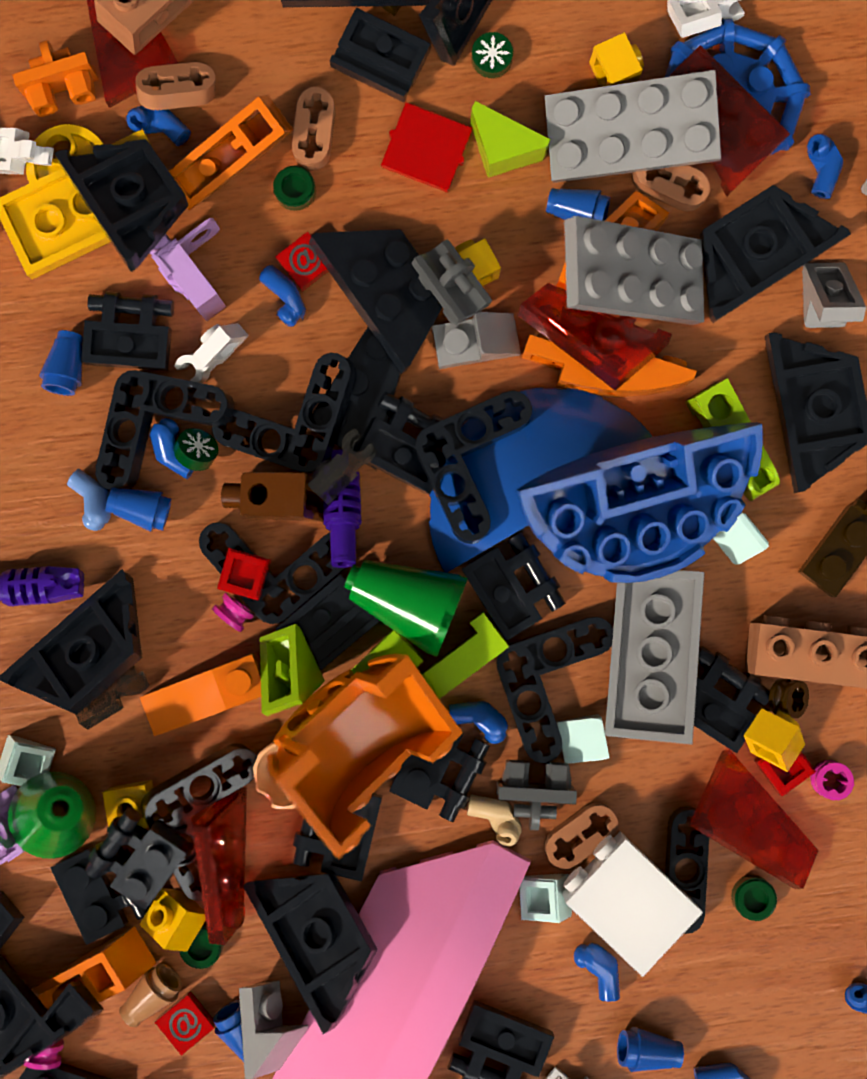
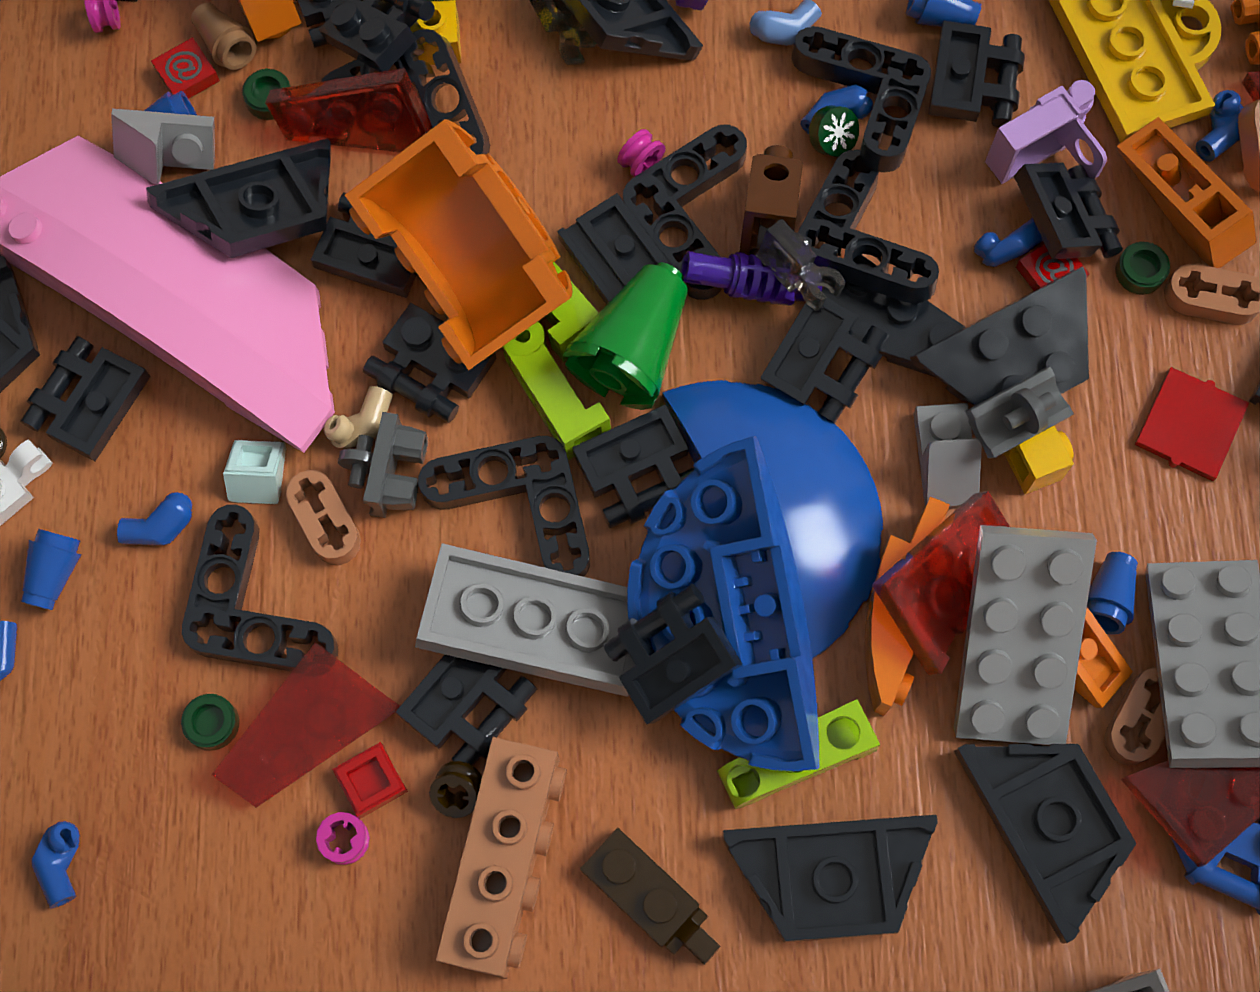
camera: 100 degrees right, 15 degrees down
(127, 194) = (1133, 69): black wing -> none
(140, 507) = (771, 68): blue cone -> none
(173, 920) = (300, 58): yellow plate -> none
(203, 694) = (552, 125): orange slope -> none
(217, 346) = (952, 160): white plate -> none
(244, 574) = (684, 165): red tile -> none
(256, 249) = (1068, 210): none -> black plate
(287, 670) = (566, 194): lime slope -> none
(459, 446) = (814, 406): black beam -> none
(483, 716) = (482, 418): blue arm -> none
(504, 142) = (1193, 507): lime slope -> none
(583, 739) = (438, 526): light aqua slope -> none
(630, 902) = (234, 551): white brick -> none
(697, 535) = (680, 668): none -> black plate
(741, 540) = (669, 752): light aqua slope -> none
(775, 738) = (407, 759): yellow plate -> none
(827, 163) = (1167, 928): blue arm -> none
(830, 296) = (984, 905): light grey slope -> none

